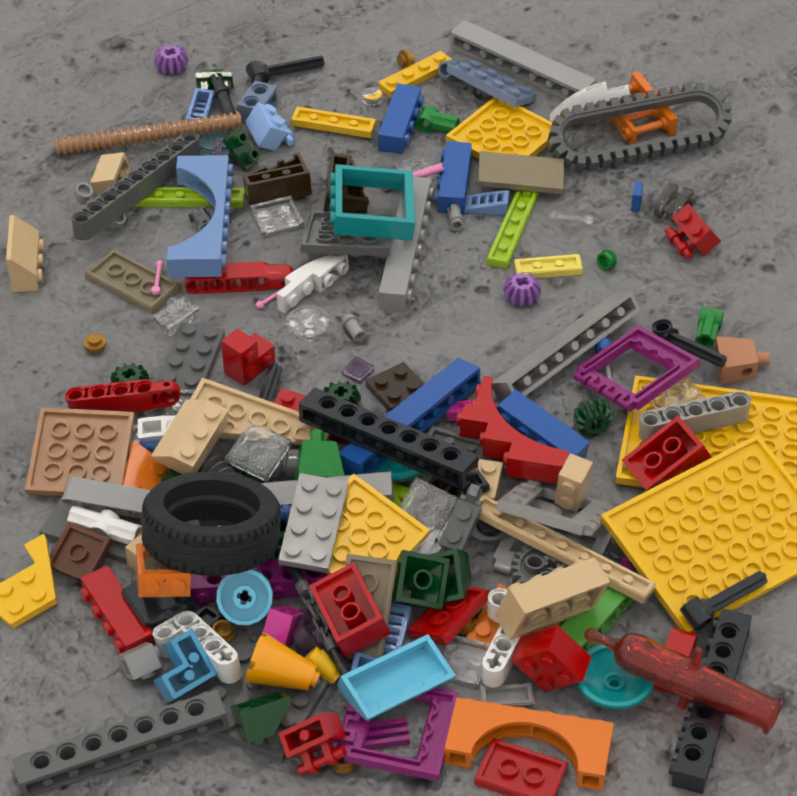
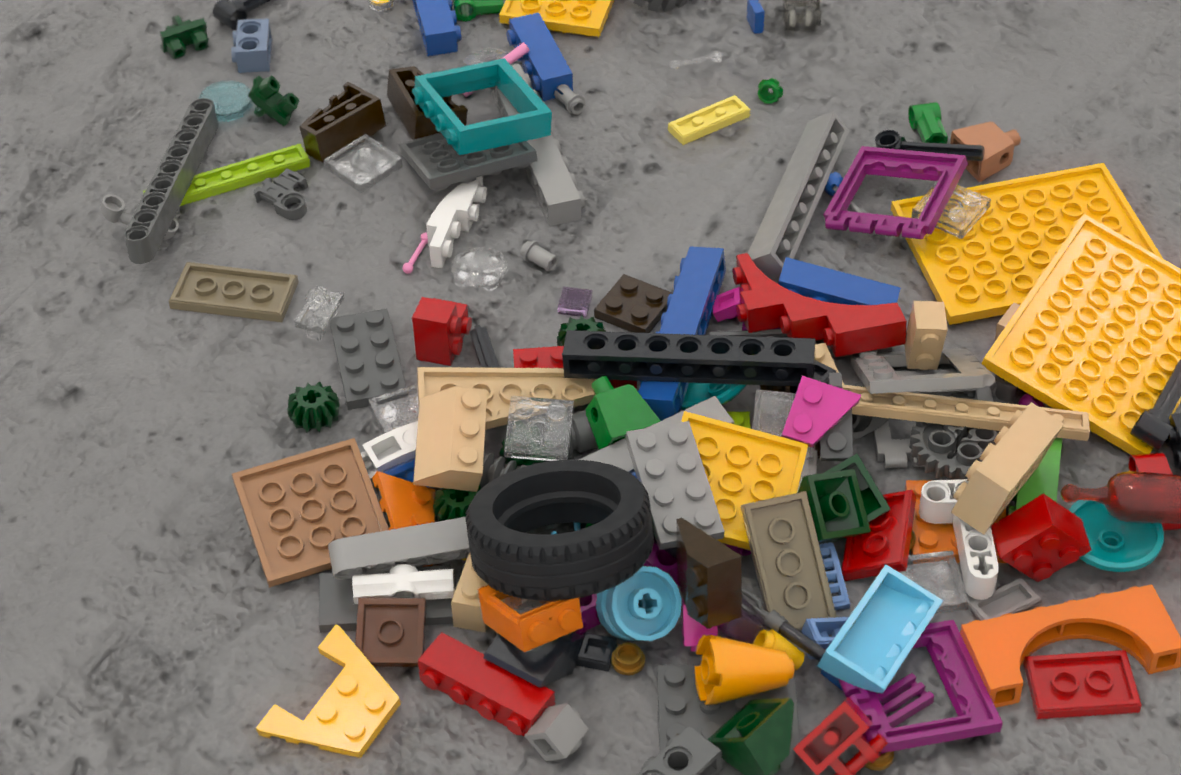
camera: 25 degrees left, 0 degrees up
(24, 256) = (82, 306): tan slope -> none
(95, 343) = (236, 378): pearl gold plate -> none
(109, 171) = (127, 176): tan brick -> none
(124, 396) = (322, 425): red piece -> none
(147, 133) = (140, 119): medium nougat piece -> none
(156, 289) = (273, 291): bright pink hinge -> none
(171, 59) = (114, 28): medium lavender gear -> none
(190, 665) = (627, 713): dark azure brick -> none
(201, 95) = (183, 56): medium blue slope -> none
(206, 251) = (314, 224): medium blue arch -> none
(218, 147) = (245, 112): clear purple tile -> none
(220, 653) = (622, 679): white beam -> none
(222, 93) = (205, 46): black pin -> none
(241, 278) = (360, 245): red piece -> none
(268, 127) = (287, 66): light blue brick -> none
(286, 593) = (708, 576): none -> dark brown slope
(333, 122) = (357, 40): yellow plate -> none
(349, 609) = (784, 570): red slope -> none
(446, 507) = (817, 410): none -> dark pink wing
(492, 203) = (598, 72): medium blue slope -> none
(512, 229) = (638, 85): lime tile -> none
(521, 172) = (613, 28): dark tan tile -> none
(522, 289) = (701, 151): medium lavender gear -> none
(593, 417) = (882, 259): dark green gear -> none
(666, 454) = (997, 271): red slope -> none
(697, 231) = (844, 28): red brick -> none
(698, 414) = (992, 221): light grey beam -> none

